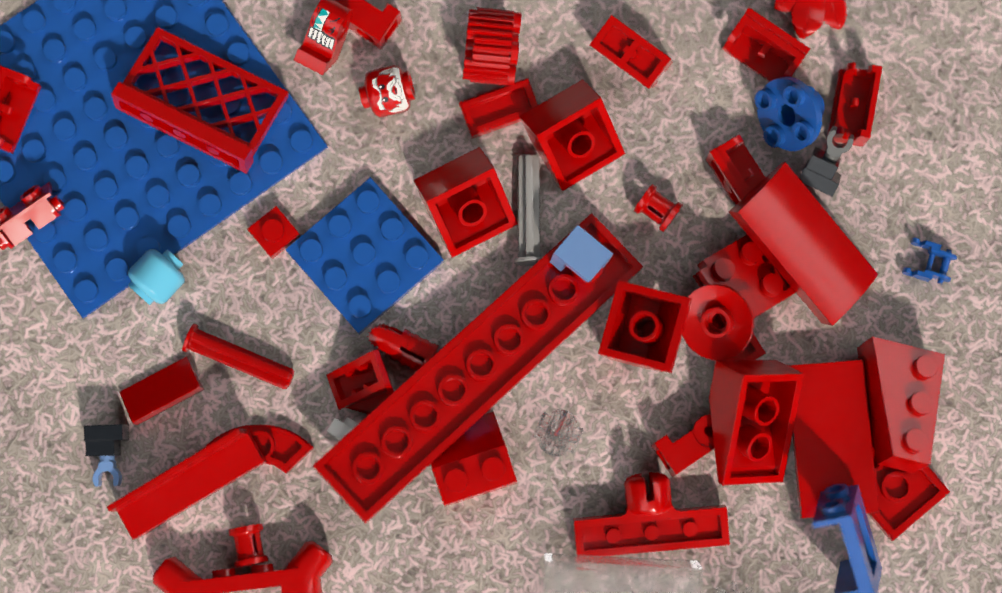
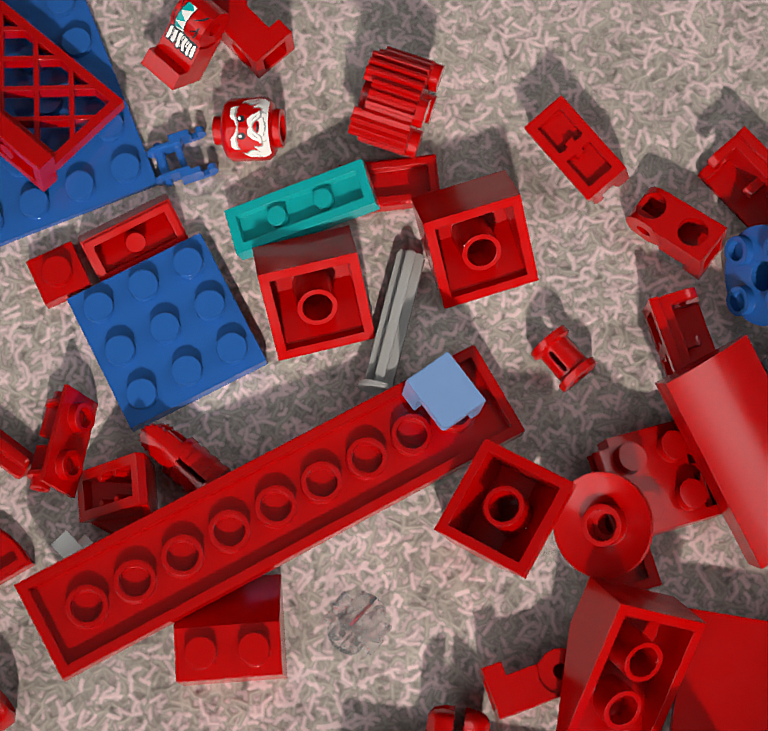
camera: 20 degrees right, 5 degrees down
(311, 338) = (69, 427): none -> red hinge
(320, 191) = (132, 237): none -> red slope
(346, 134) = (185, 173): none -> blue piece
(442, 142) = (303, 208): none -> teal plate
(717, 94) = (678, 230): none -> red leg

